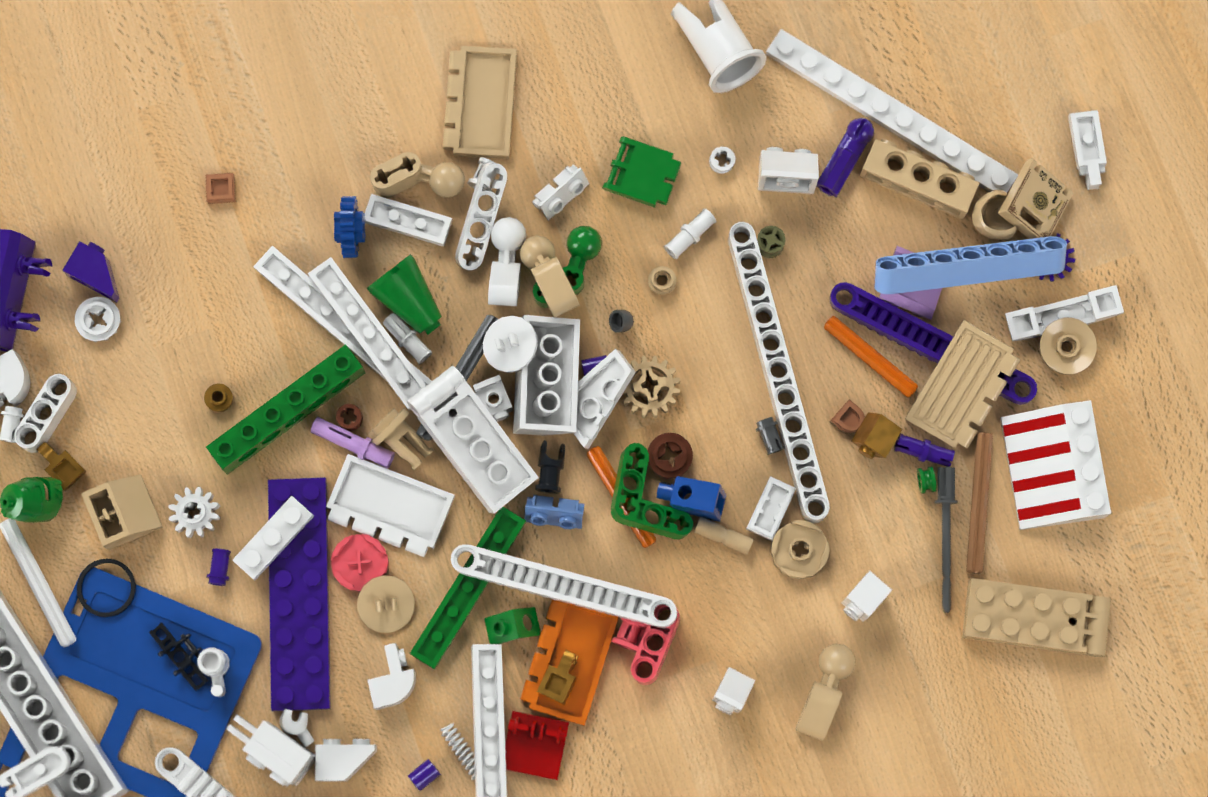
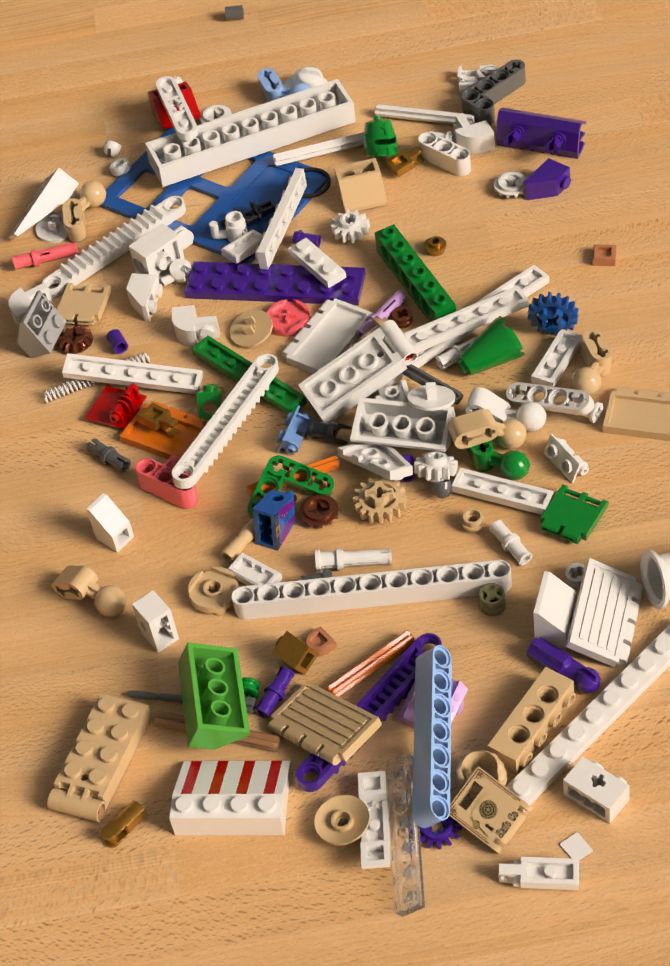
camera: 110 degrees right, 30 degrees down
(183, 601) = (279, 223): none -> white plate
(245, 643) = (242, 247): none -> white plate
(597, 330) = (435, 466): none -> white gear
(615, 731) = (108, 455): none -> dark grey pin
(618, 253) = (502, 491): none -> white plate
(738, 415) = (341, 559): none -> white pin
(777, 123) = (605, 614): none -> white hinge
(957, 505) = (212, 696): none -> bright green slope
(997, 93) = (596, 789): none -> white brick
(1047, 122) = (576, 846): none -> white sticker
(1071, 282) = (404, 838): none -> clear plate
(1108, 570) = (123, 824): none -> pearl gold bar

